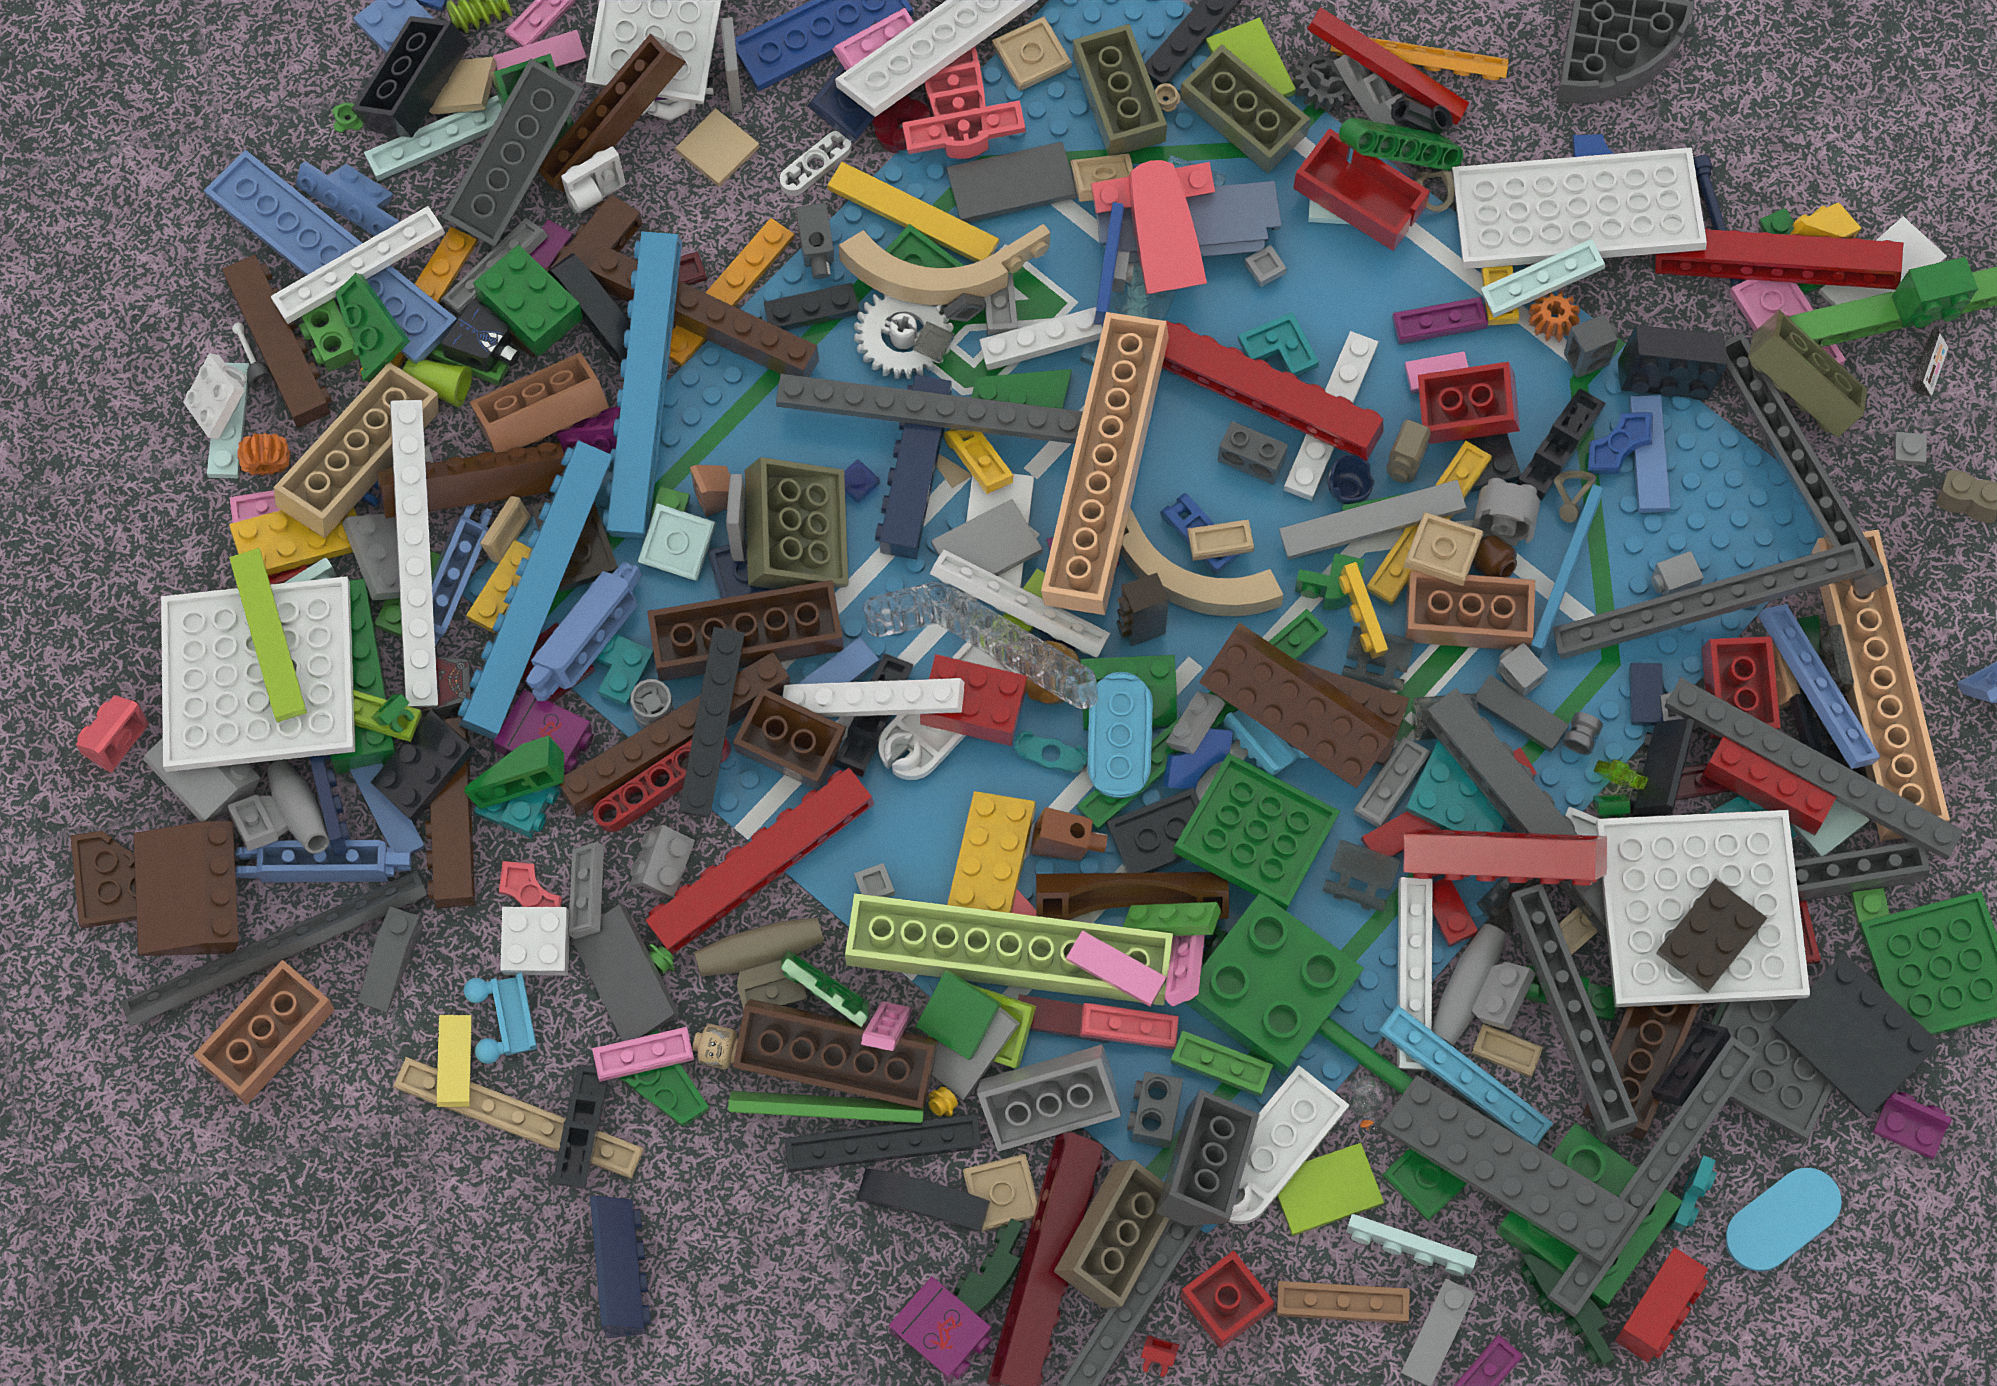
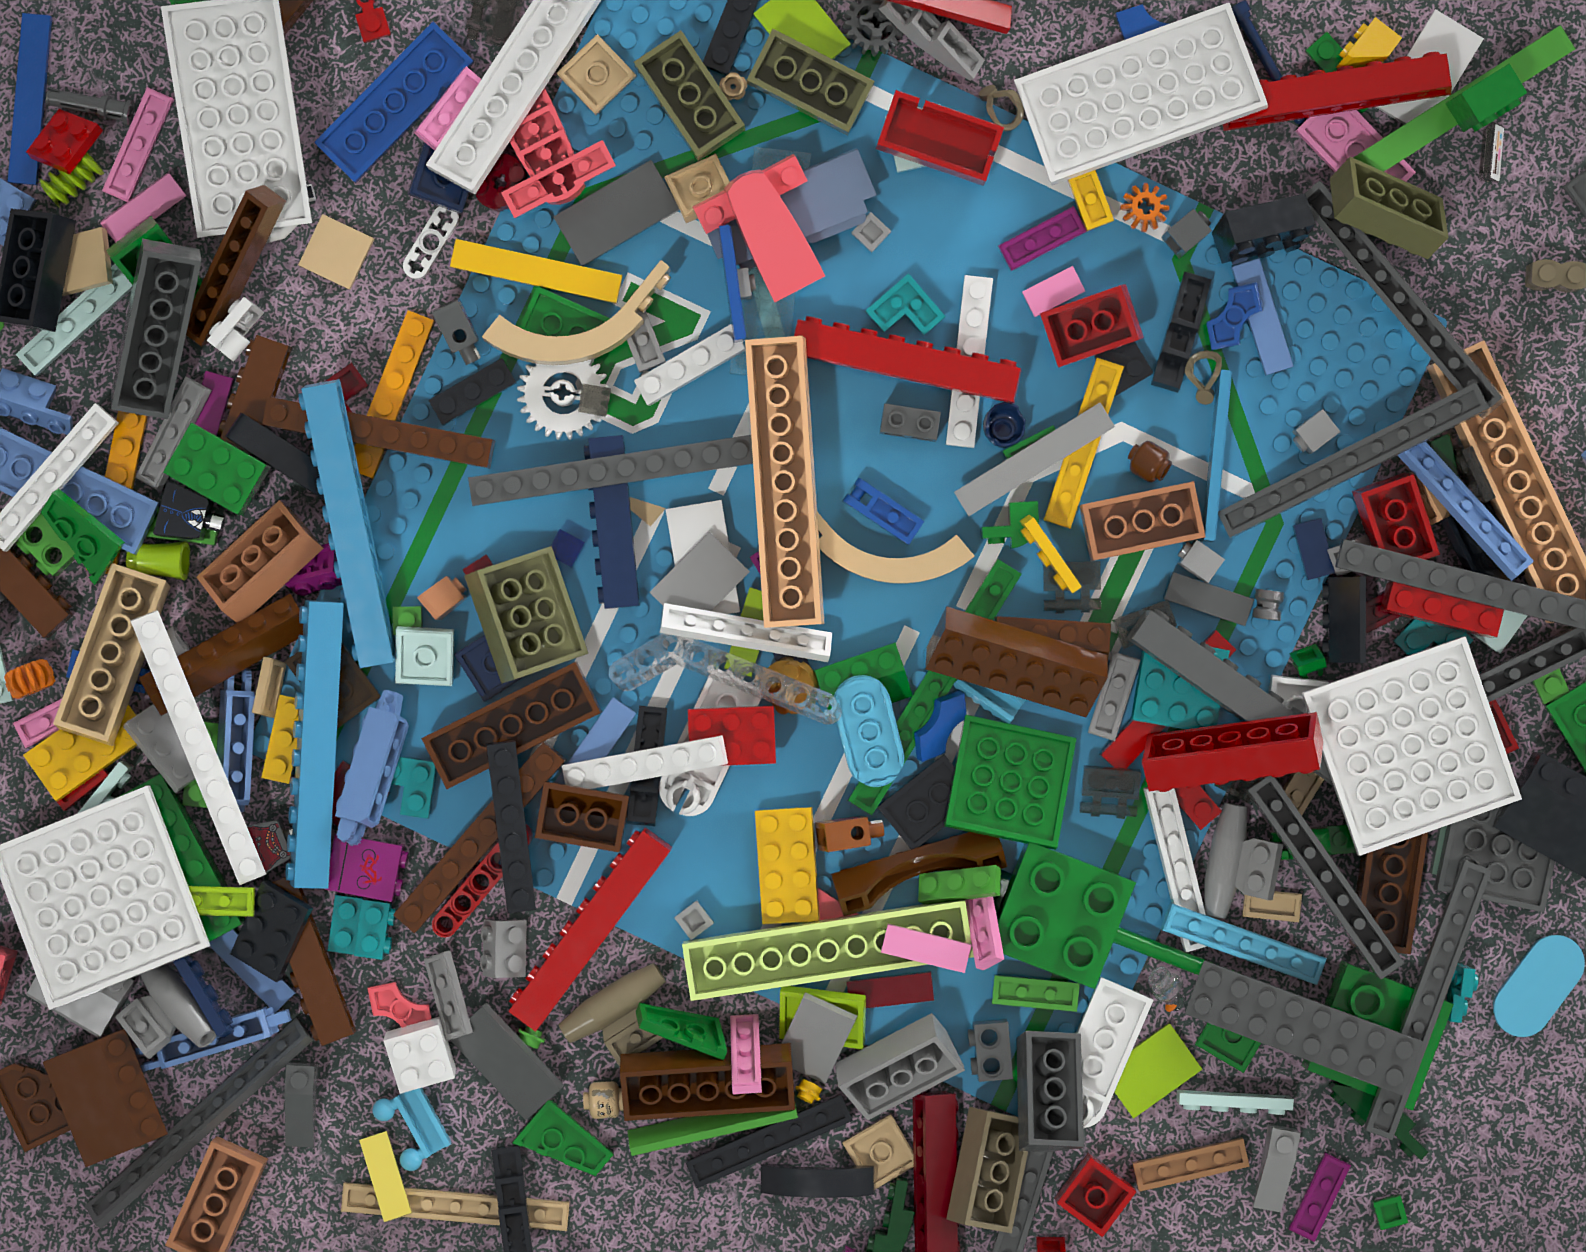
camera: 20 degrees left, 20 degrees up
(268, 635) = (97, 863): lime tile -> none
(391, 710) = (229, 902): green tile -> none
(521, 772) = (360, 915): green slope -> none
(643, 1054) = (544, 1127): bright pink tile -> none
(650, 702) = (452, 817): light grey wheel -> none
(731, 64) = (325, 177): light grey tile -> none
(736, 517) = (471, 626): light grey tile -> none
(958, 1015) = (802, 1023): green tile -> none
(965, 307) = (612, 356): dark grey tile -> none
(979, 459) = (671, 503): yellow plate -> none
(1031, 388) = (688, 422): green wing -> none
(1031, 748) = (829, 754): teal piece -> none
(1129, 1026) = (946, 985): coral tile -> none
(1142, 609) = (856, 612): dark brown brick -> none
(1195, 722) = (930, 700): light grey plate -> none
(1220, 540) = (905, 517): tan tile -> none
(1400, 144) = (964, 83): green beam -> none
(1408, 451) = (1049, 386): dark tan brick -> none
(1421, 117) = (974, 42): black piece -> none
(1443, 549) = (1105, 475): tan tile -> none
(1507, 511) = (1151, 418): light grey brick -> none
(1543, 278) = (1127, 180): light aqua plate -> none
(1620, 774) = (1308, 633): clear neon green plate -> none
(1663, 1306) = (1457, 1097): red brick -> none
(1690, 1063) = (1434, 887): black plate -> none
(1711, 935) = (1426, 773): dark brown plate -> none
(1910, 448) = (1491, 240): light grey plate -> none

